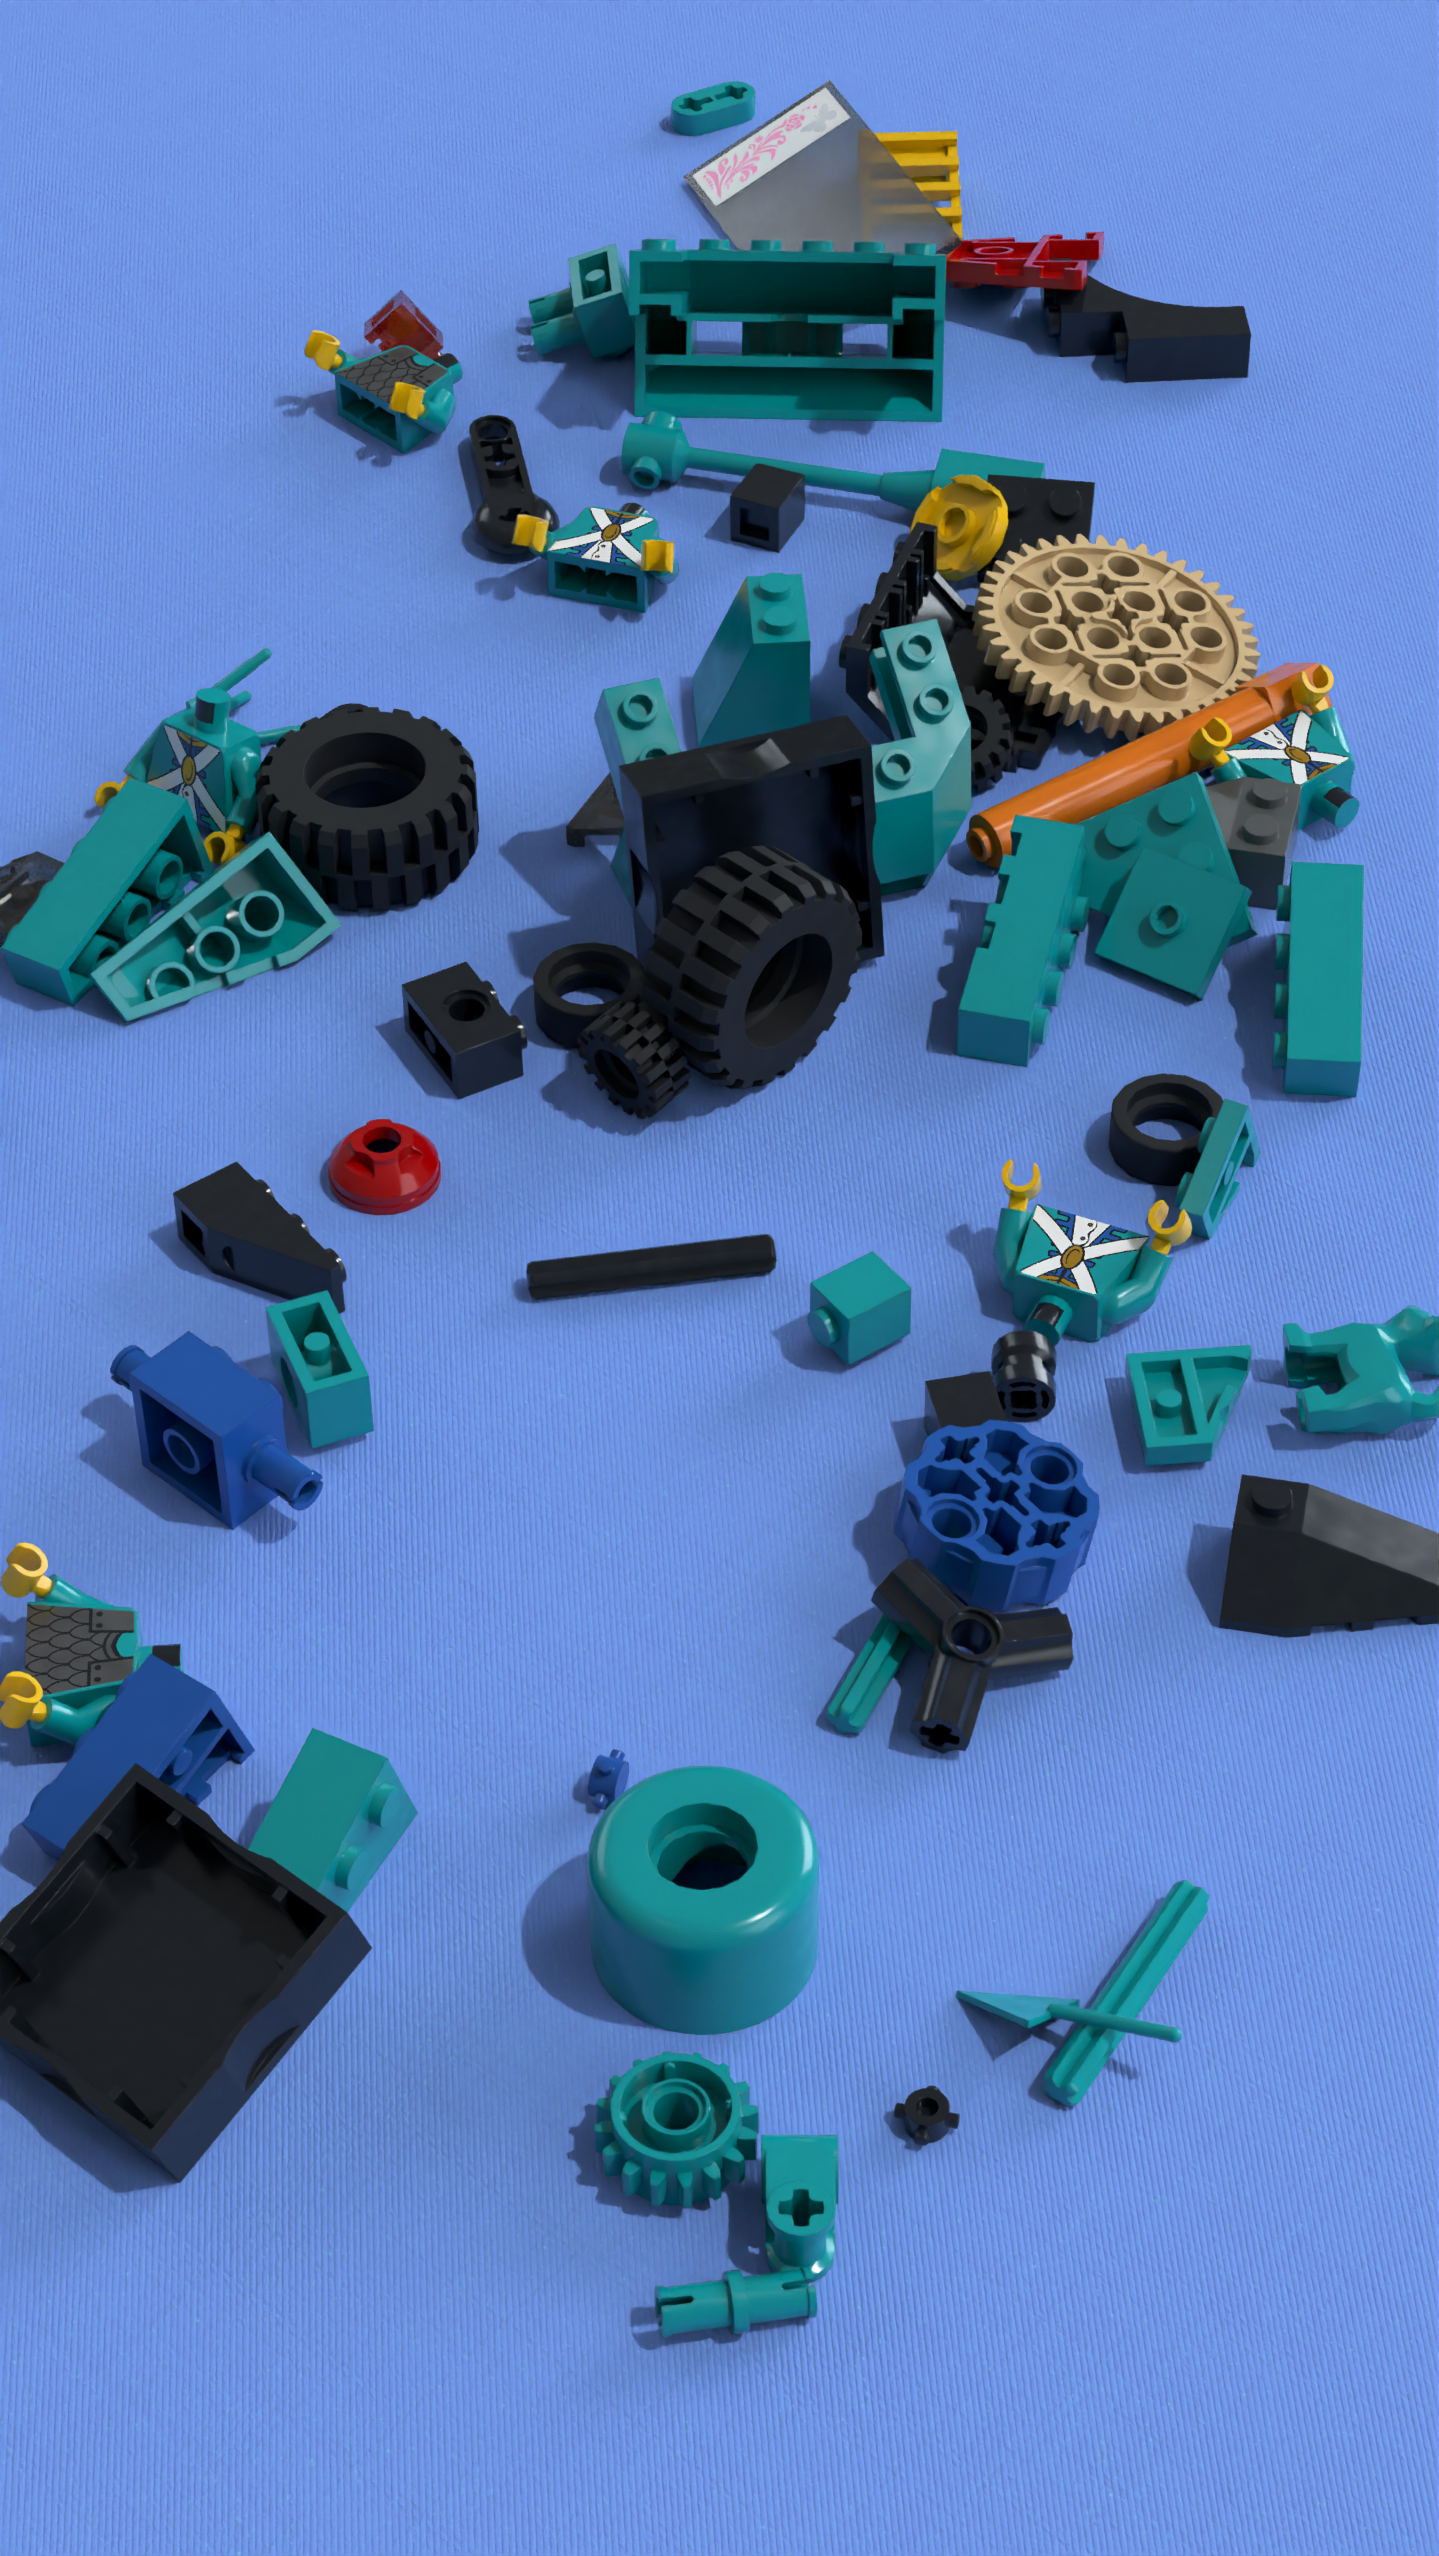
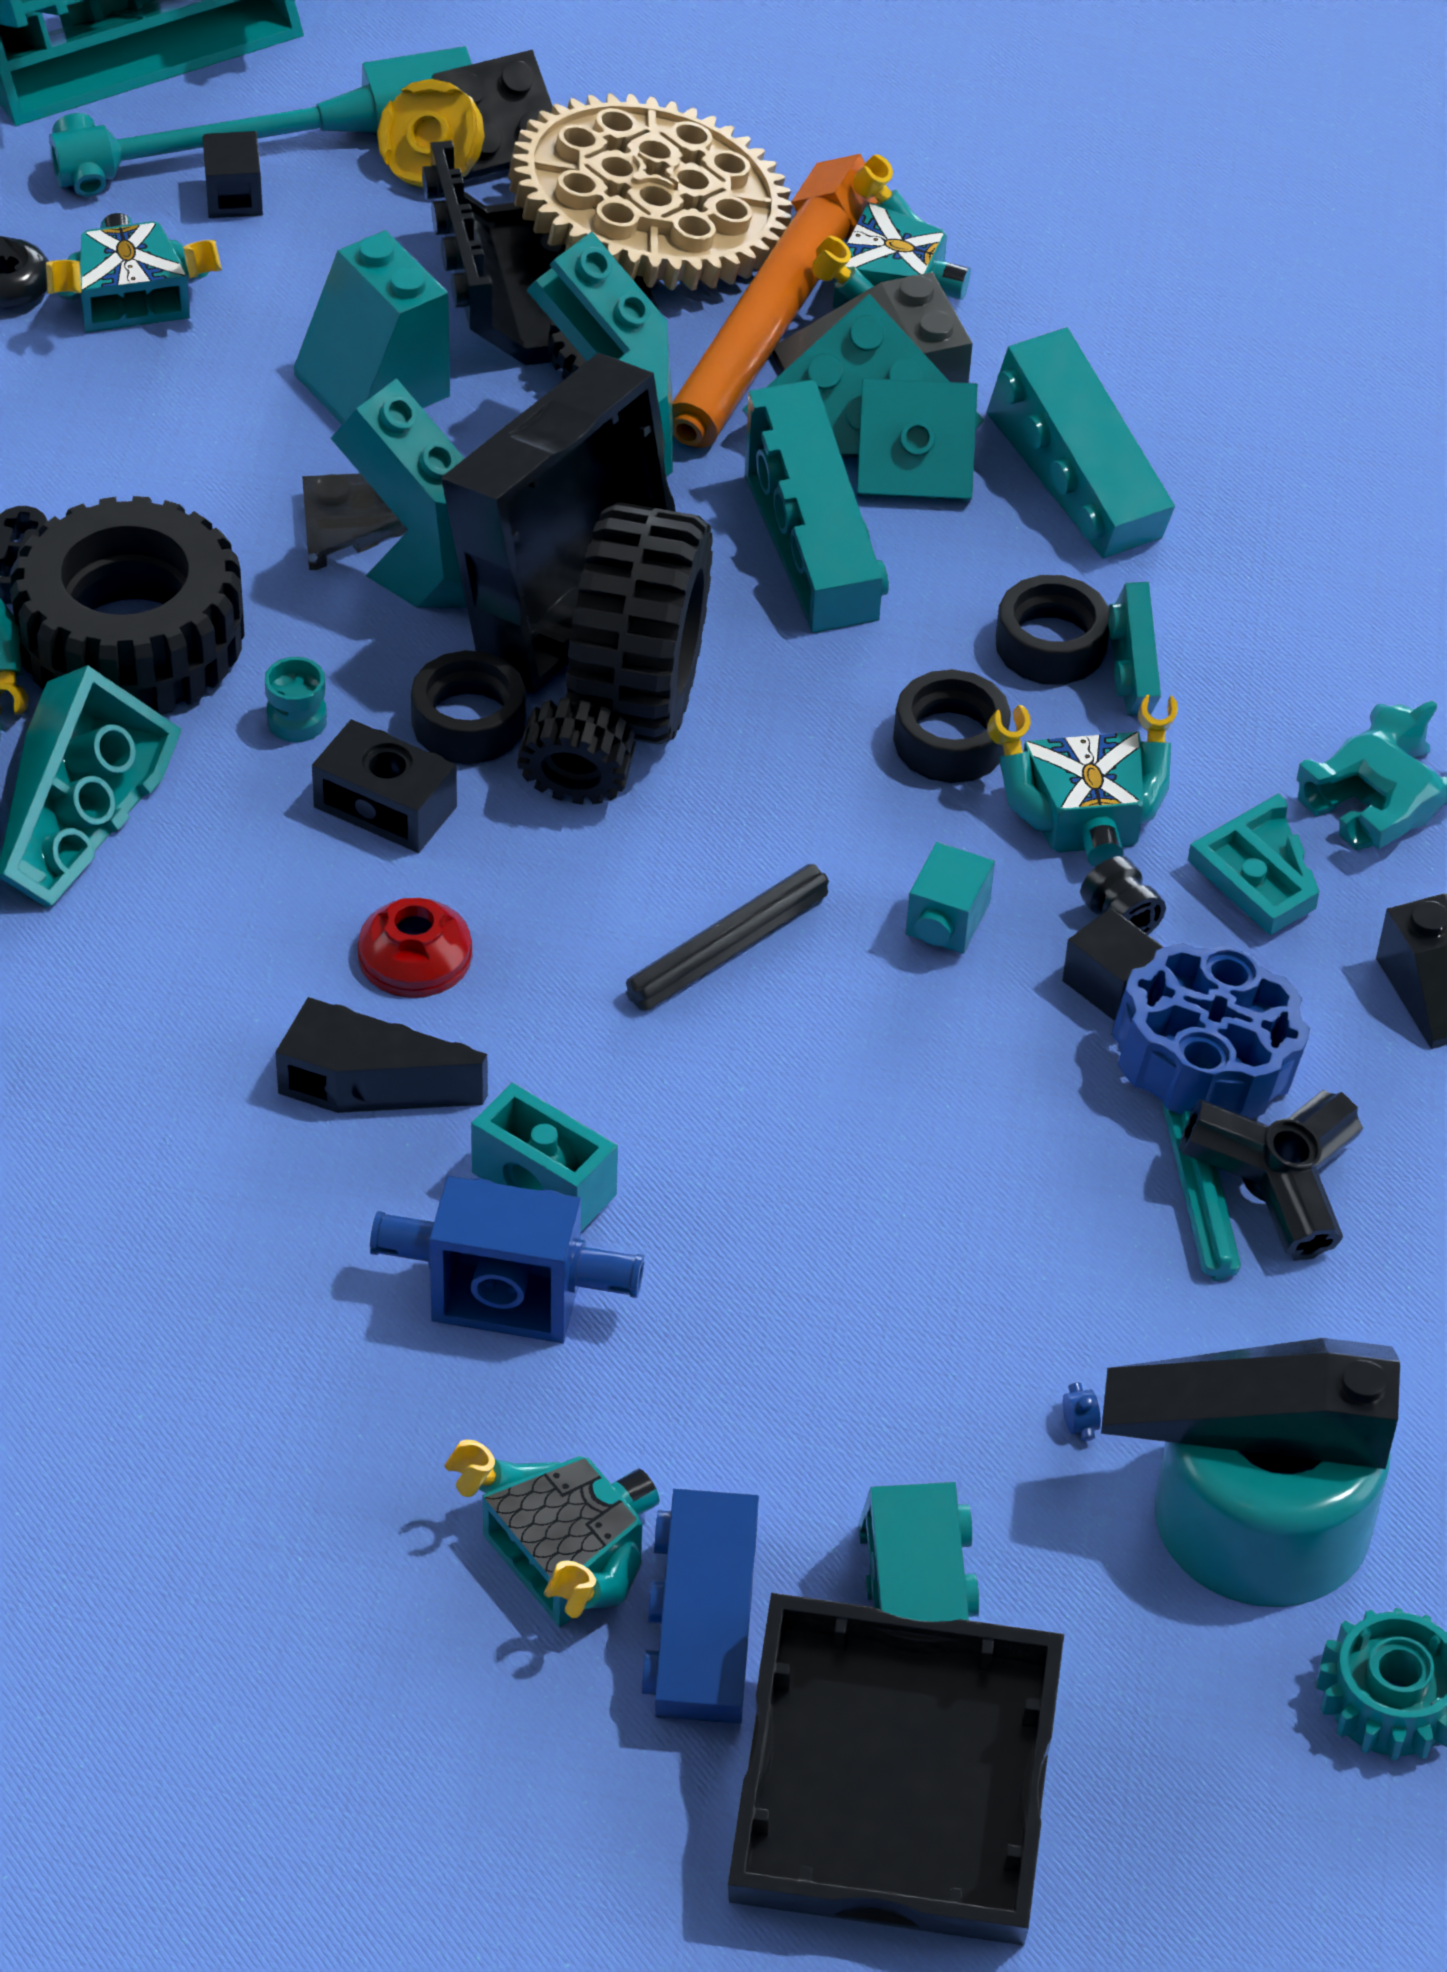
camera: 35 degrees left, 5 degrees up
(450, 932) = (295, 699): none -> teal wheel
(718, 1820) = (1278, 1399): none -> black wedge
(997, 1142) = (942, 757): none -> black tyre

